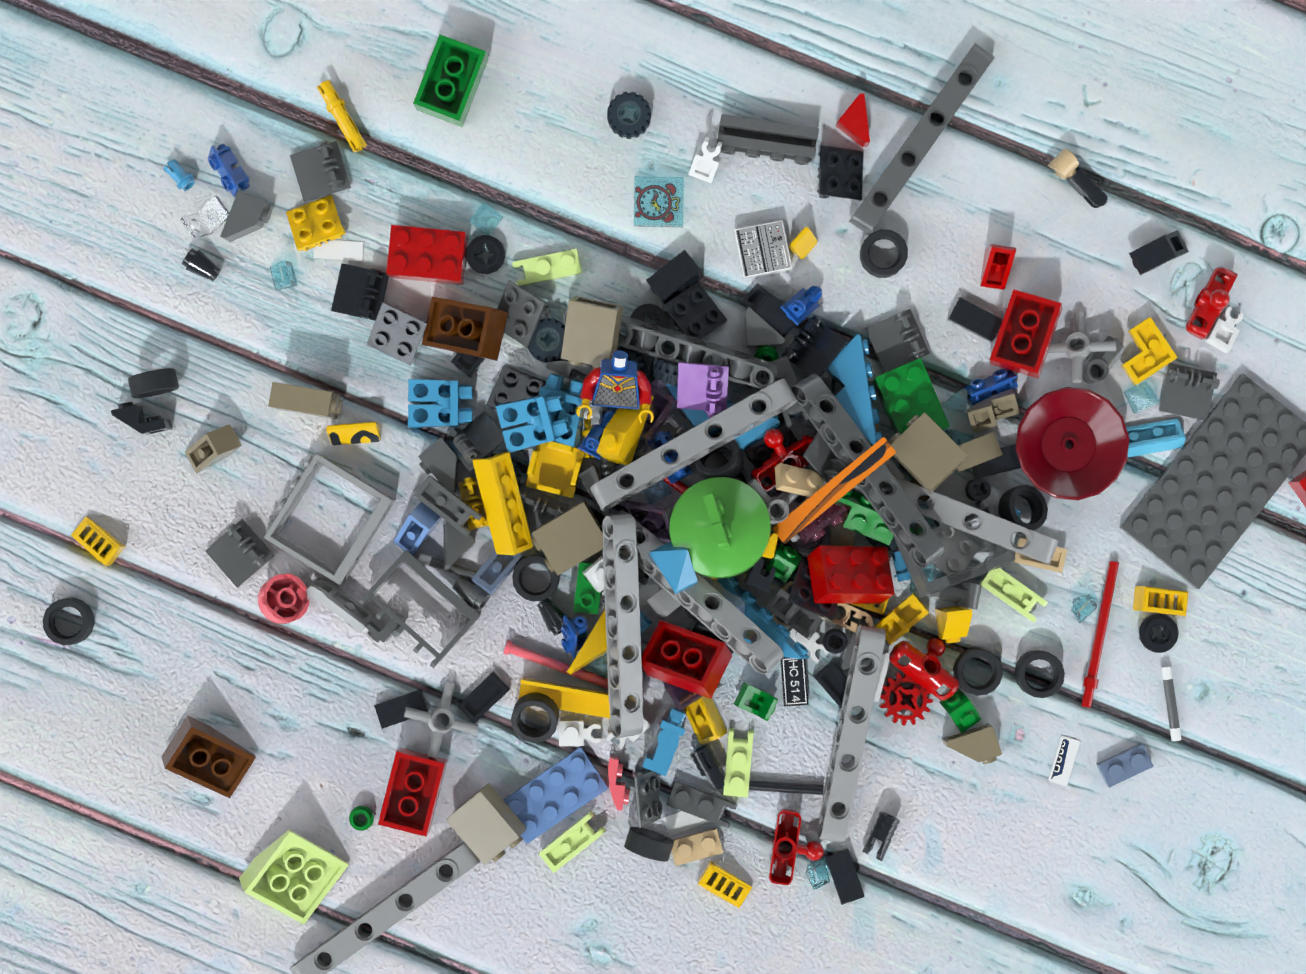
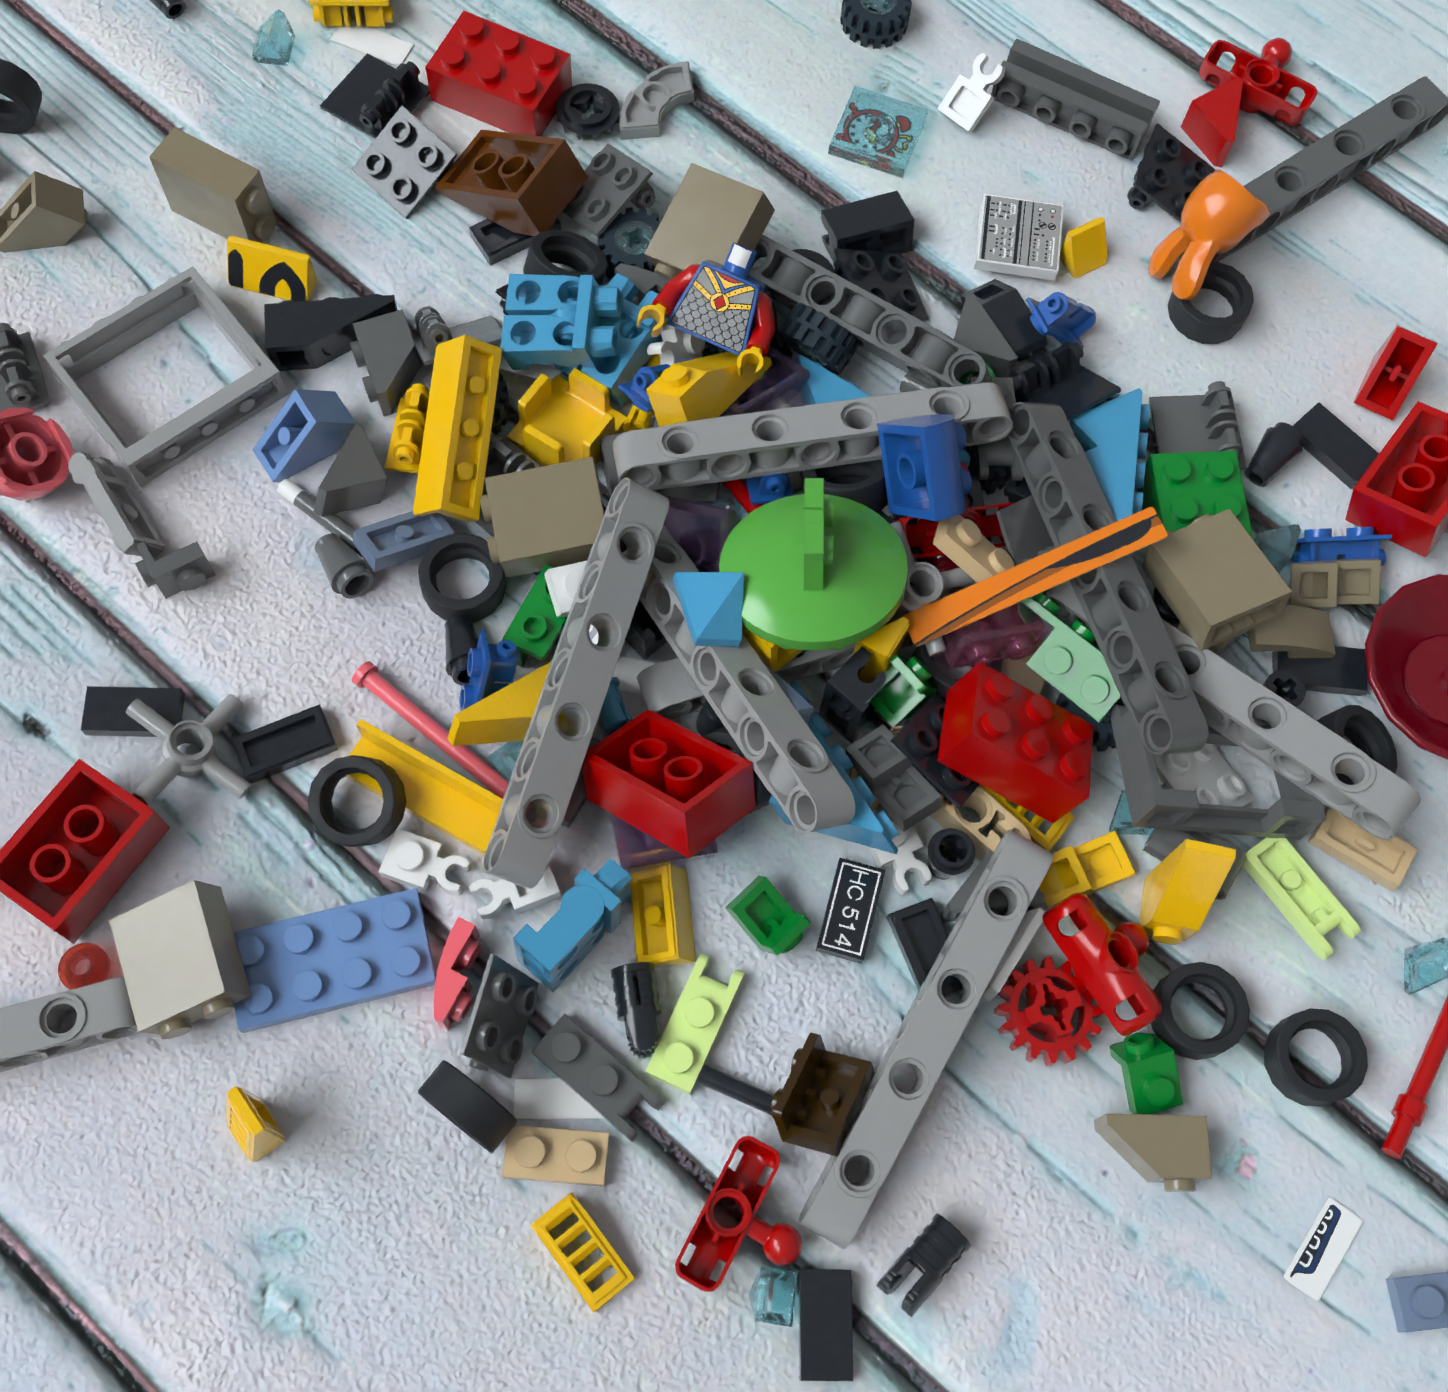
camera: 15 degrees right, 20 degrees down
(395, 464) = (318, 330): none -> black slope
(421, 571) = (225, 481): dark grey hinge -> none
(441, 833) = (98, 970): none -> clear red plate
(446, 403) = (422, 269): dark azure hips -> none
(446, 504) = (363, 400): dark grey hinge -> none
(486, 219) = (609, 71): clear light blue slope -> none
(519, 230) = (653, 99): none -> light grey tile
(521, 358) = (565, 249): none -> black tyre
(549, 267) = (672, 156): yellowish green hinge -> none
(554, 884) = (252, 1124): none -> yellow slope
(570, 843) = (320, 1058): yellowish green hinge -> none
(702, 387) = (859, 357): medium lavender hinge -> none
(759, 450) = (924, 466): none -> blue brick
(810, 780) = (820, 1097): none -> dark brown bracket
(870, 220) = (1211, 223): none -> orange piece
(886, 90) = (1263, 79): none -> red piece
(900, 567) = (1107, 779): dark azure pin -> none
(942, 341) = (1274, 453): none -> black cone

